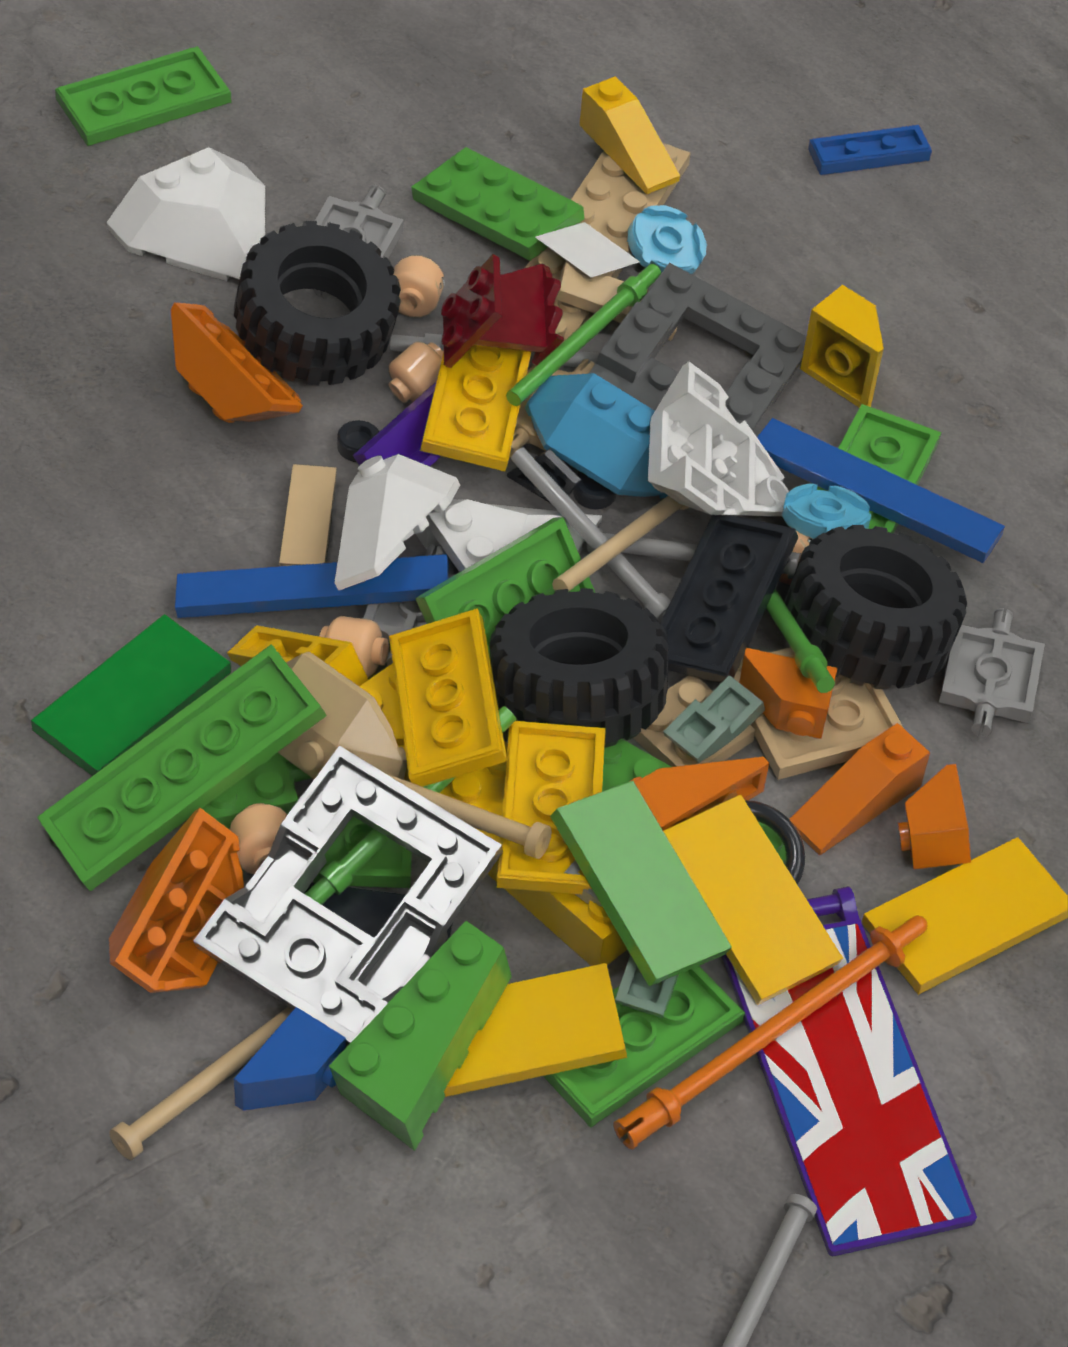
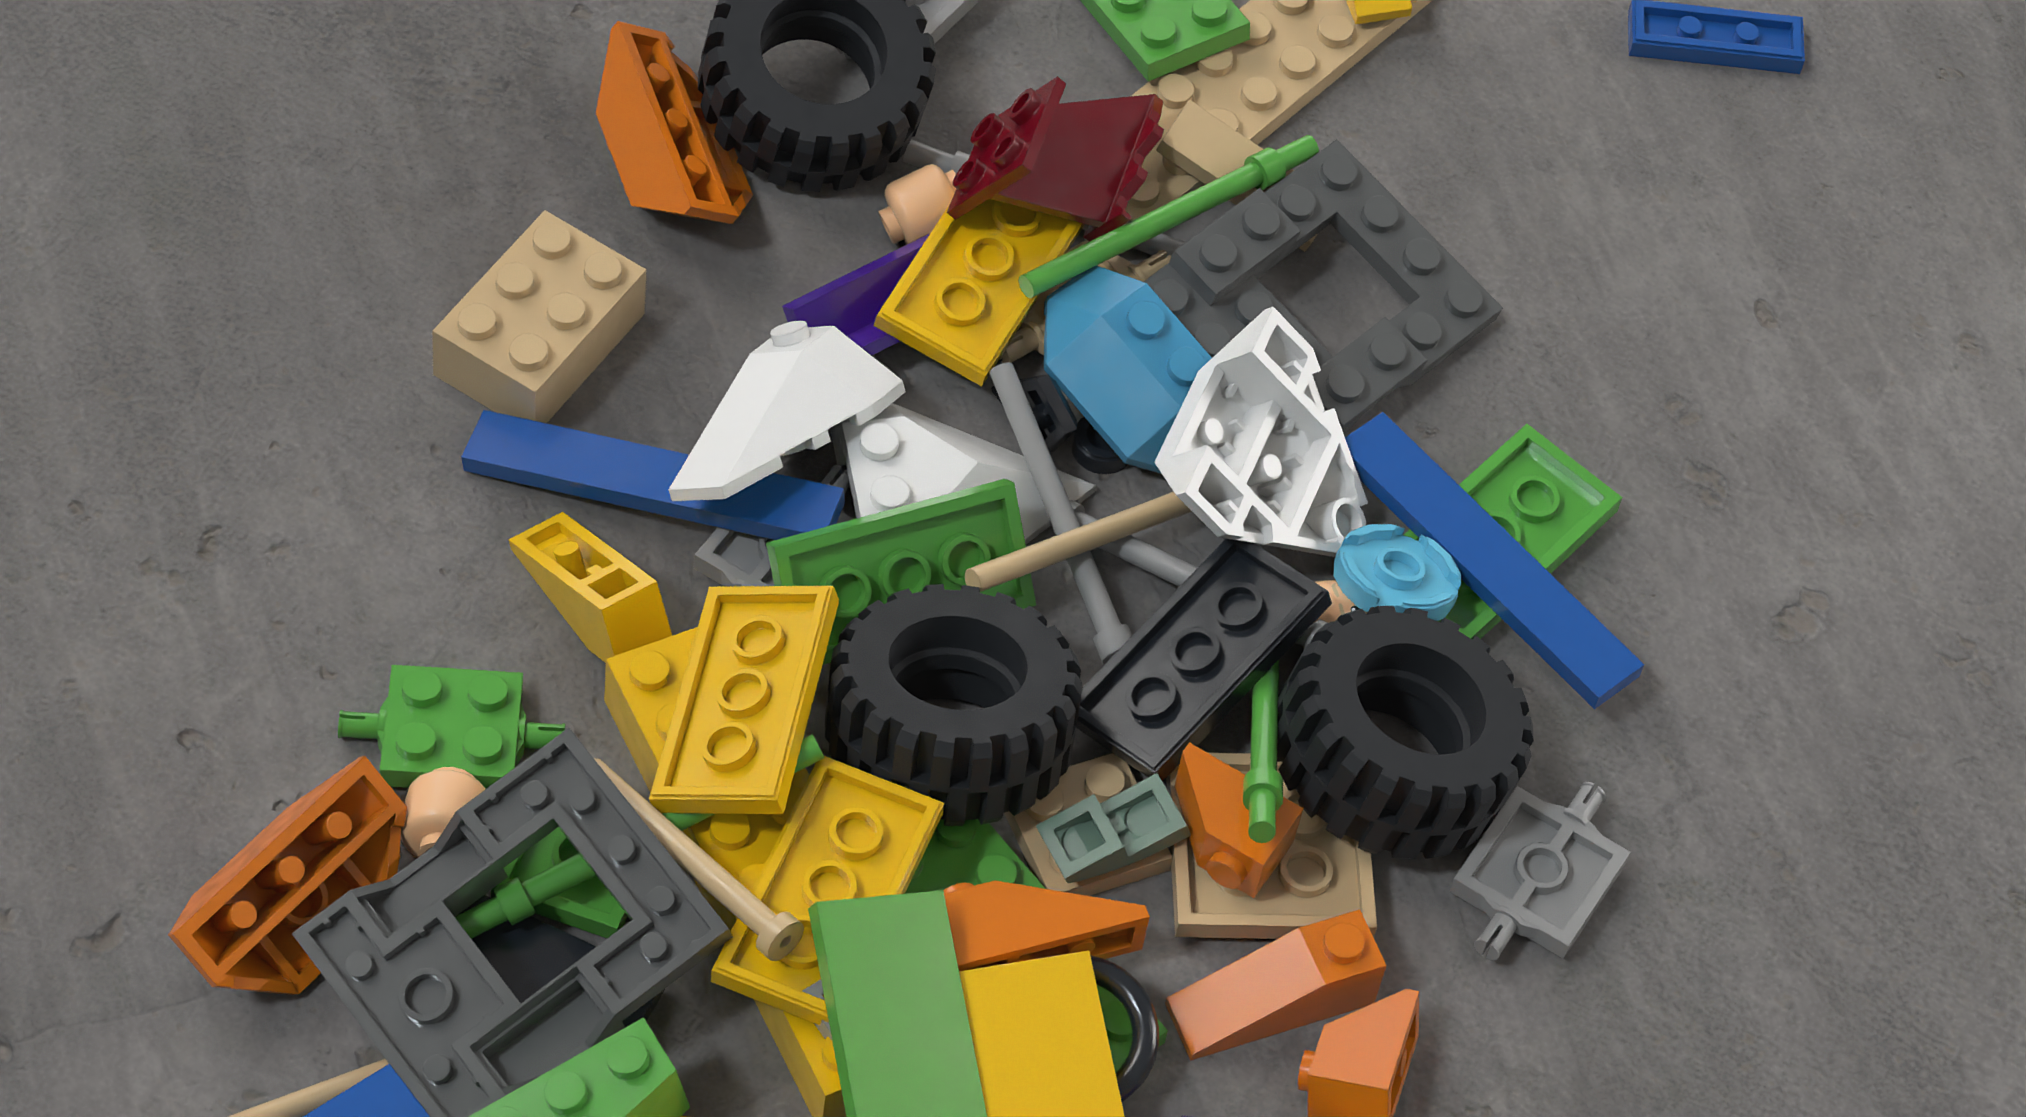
camera: 15 degrees right, 5 degrees up
(130, 695) = (358, 566): green tile -> none
(181, 767) = (369, 689): bright green plate -> none
(192, 507) = (539, 321): none -> tan brick
(308, 515) = (692, 376): tan tile -> none
(351, 722) = (580, 676): tan wedge -> none
(353, 437) = (803, 274): black tile -> none
(365, 638) = (681, 575): light nougat head -> none
(420, 285) = (976, 75): light nougat head -> none
(587, 249) = (1230, 88): white sticker -> none
(665, 236) = (1356, 100): medium azure tile -> none
(844, 346) = (1531, 329): yellow slope -> none

